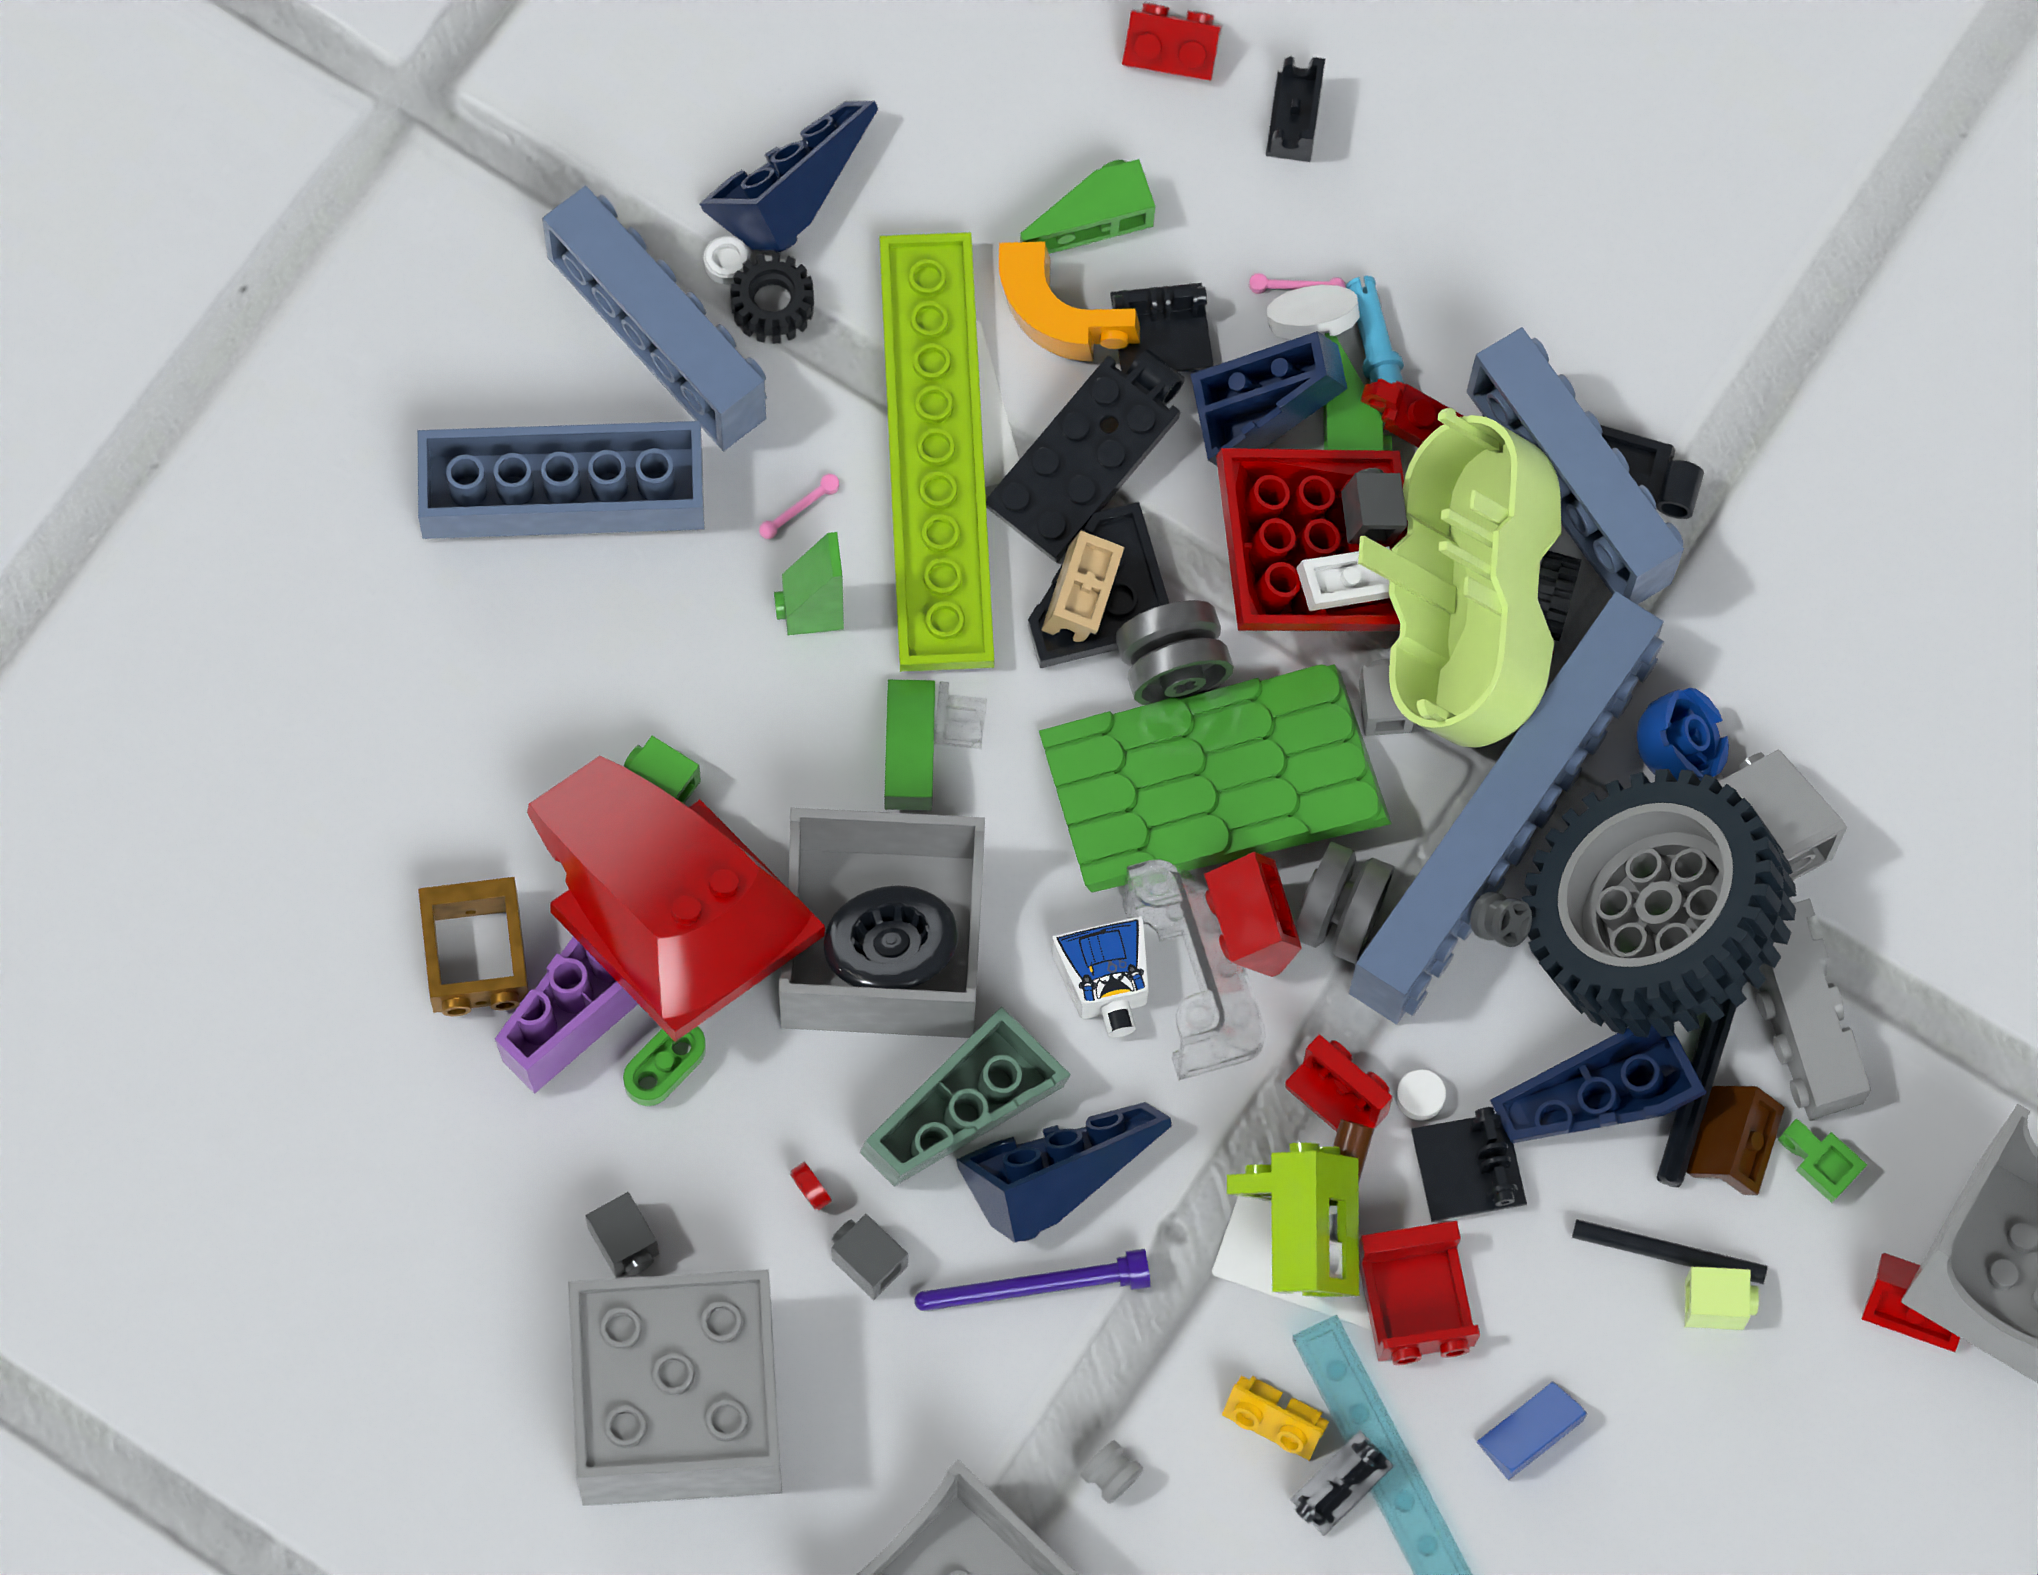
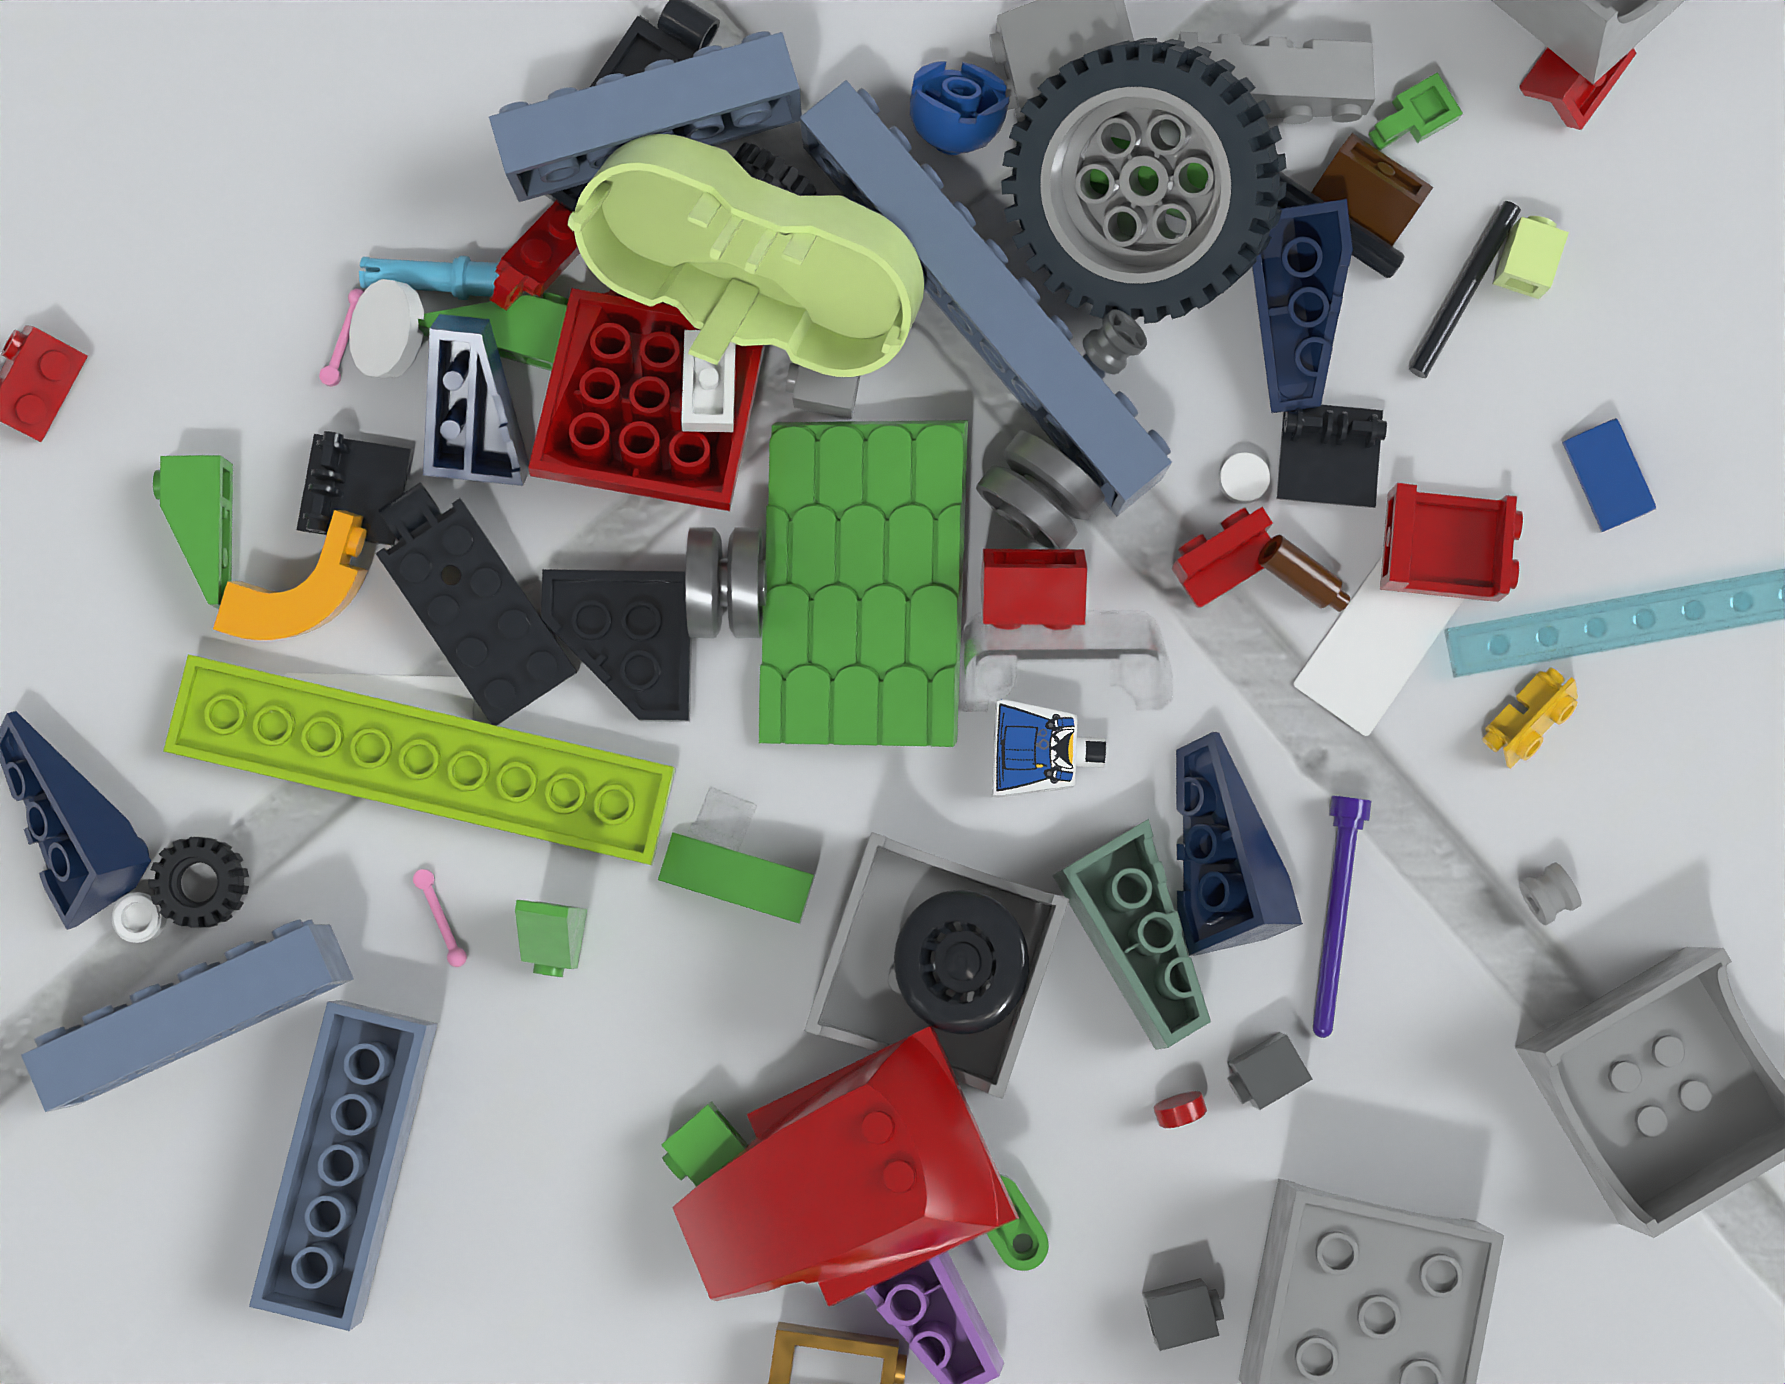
camera: 70 degrees left, 15 degrees up
(1083, 586) = (627, 654): tan hinge -> none
(1295, 110) = (149, 278): black hinge -> none
(1312, 1218) = (1368, 623): lime brick -> none
(1341, 1483) = (1619, 675): hinge -> none
(1374, 506) = (635, 331): dark grey brick -> none

